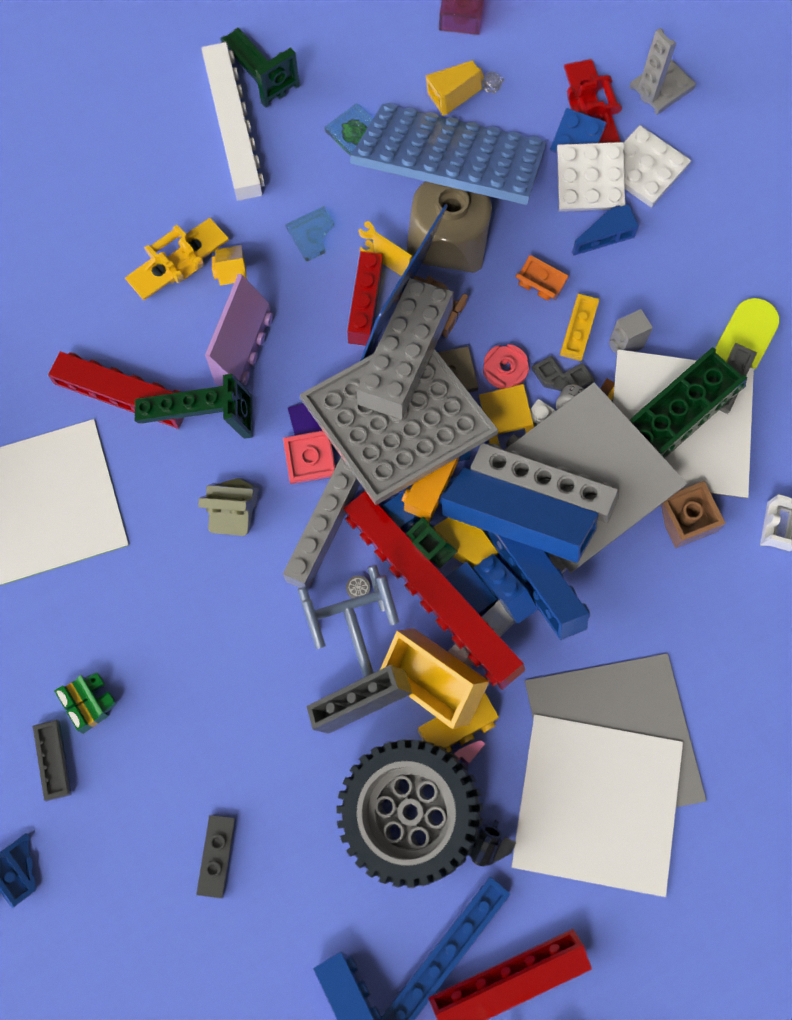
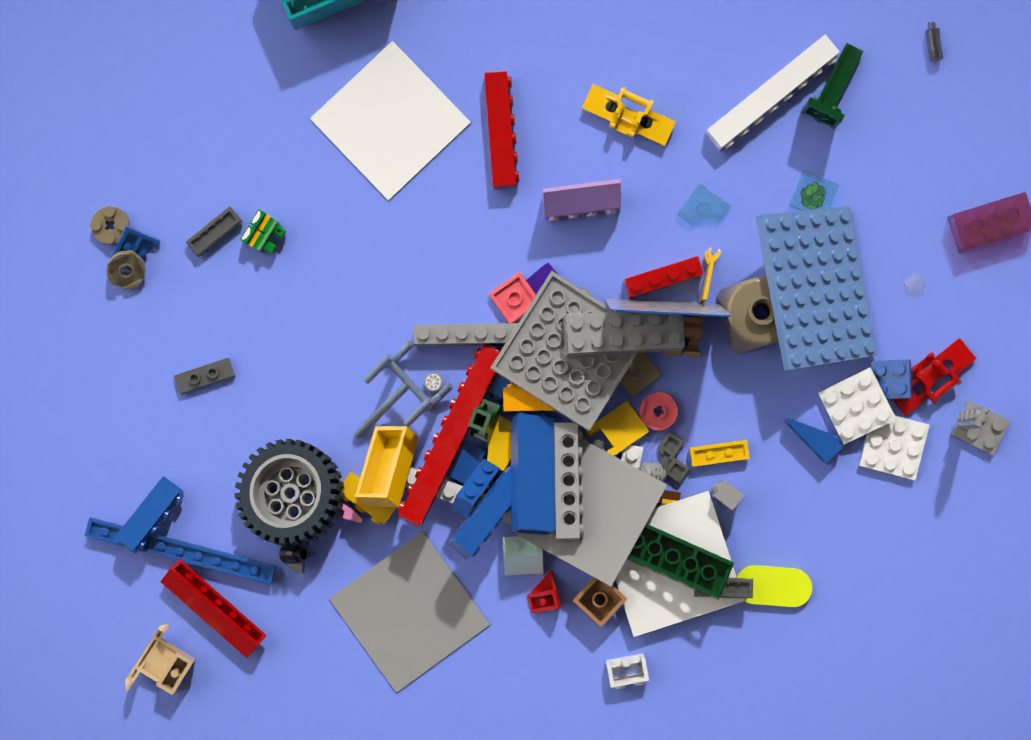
camera: 65 degrees right, 15 degrees up
(19, 892) = (129, 259): none -> dark tan plate
(228, 264) = (635, 162): yellow brick -> none
(230, 399) = (523, 223): dark green bracket -> none
(230, 506) = (450, 259): piece -> none
(359, 699) = (348, 422): dark grey brick -> none
(454, 85) = (890, 257): yellow slope -> none
(542, 278) = (746, 405): orange bracket -> none
(598, 805) = (359, 619): white piece -> none
(603, 578) = (521, 556): none -> light aqua slope
(660, 573) = (544, 595): none -> red slope

